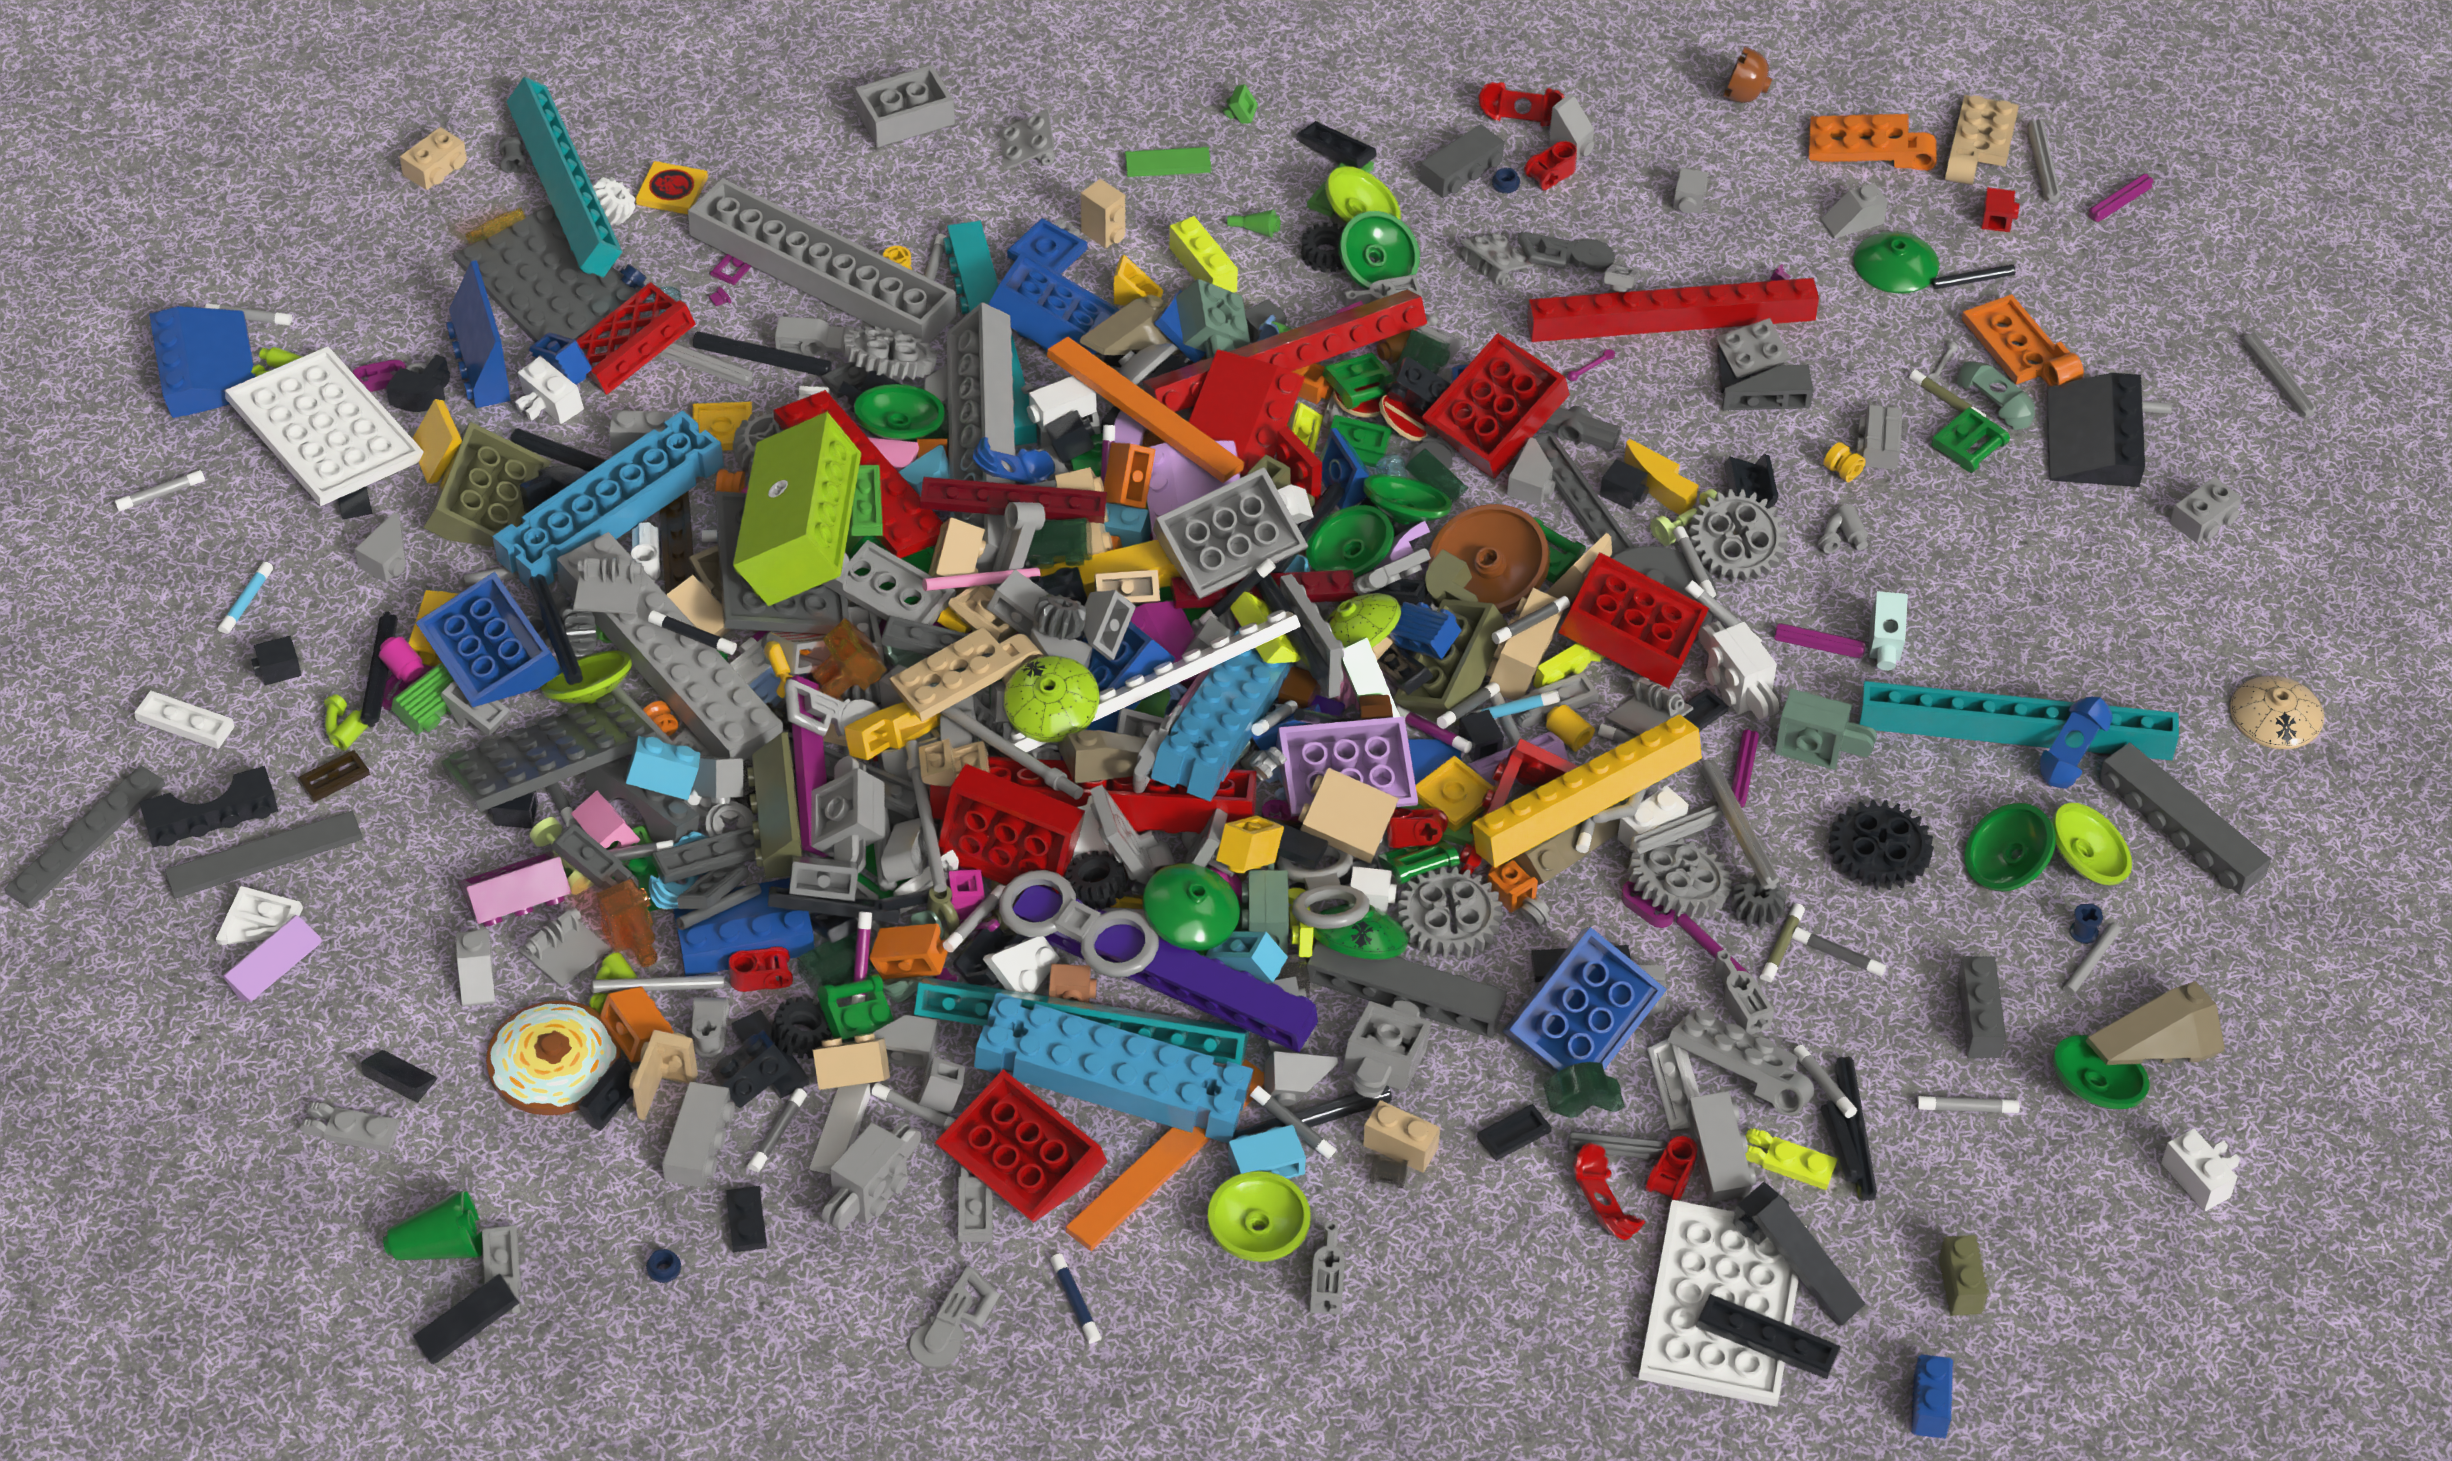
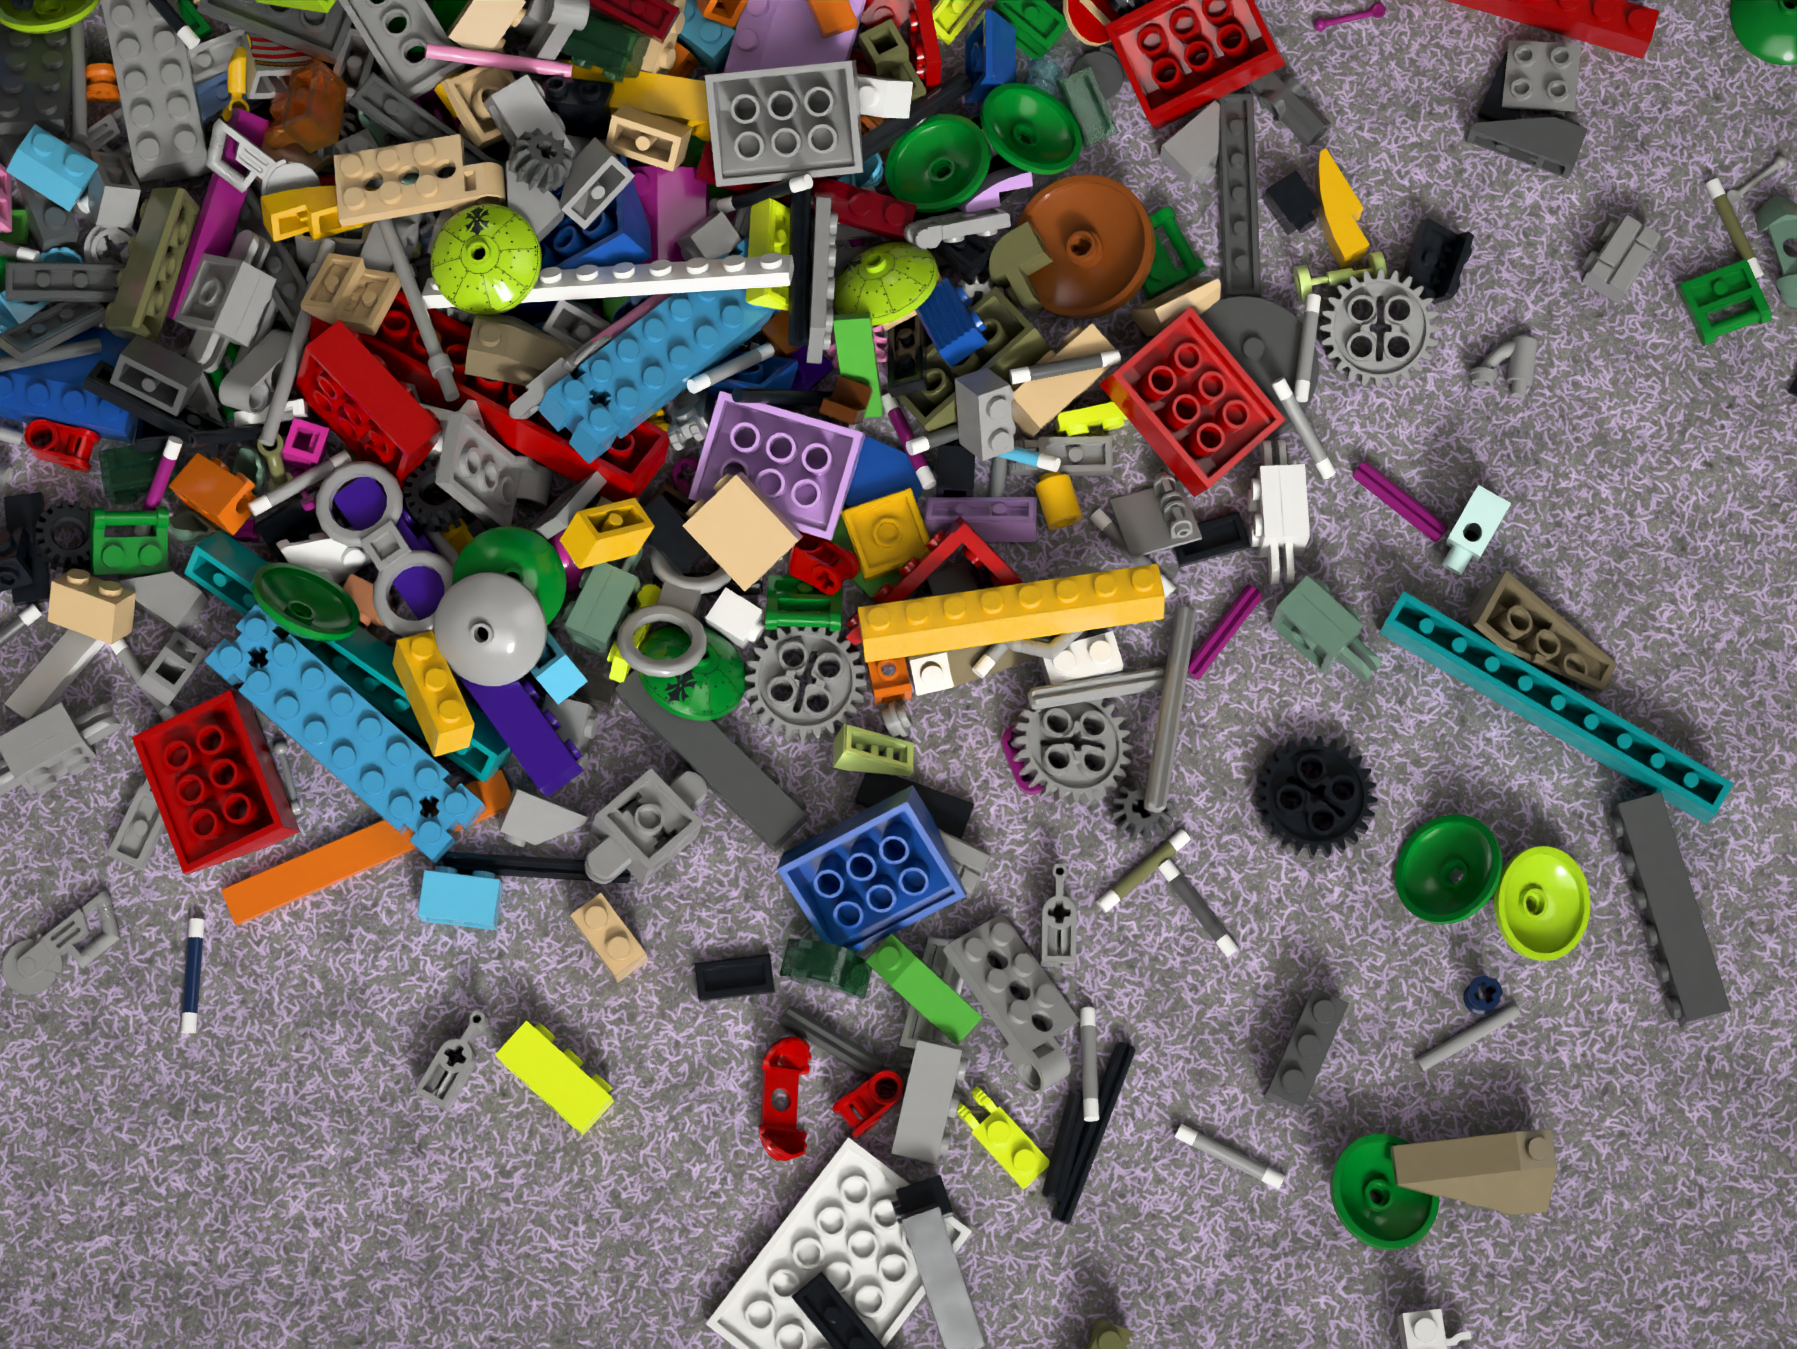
camera: 25 degrees right, 25 degrees up
(1033, 986) = (305, 602): none -> green dish
(1173, 1003) = (433, 693): none -> yellow brick
(1192, 957) = (513, 625): none -> light grey dish
(1263, 1201) = (395, 951): lime dish -> none
(1289, 1118) = (506, 872): dark grey bar -> none
(1388, 1171) = (577, 970): clear smoke bush -> none
(1415, 1250) = (556, 1076): none -> neon yellow brick
(1487, 675) = (985, 414): none -> light grey brick
(1523, 939) = (849, 752): none -> yellowish green slope
(1666, 1071) = (924, 989): none -> bright green slope
(1704, 939) = (1066, 848): magenta piece -> none
(1844, 462) = (1560, 274): yellow wheel -> none
(1953, 671) = (1535, 632): none -> dark tan wedge
(2060, 763) = (1625, 749): blue piece -> none

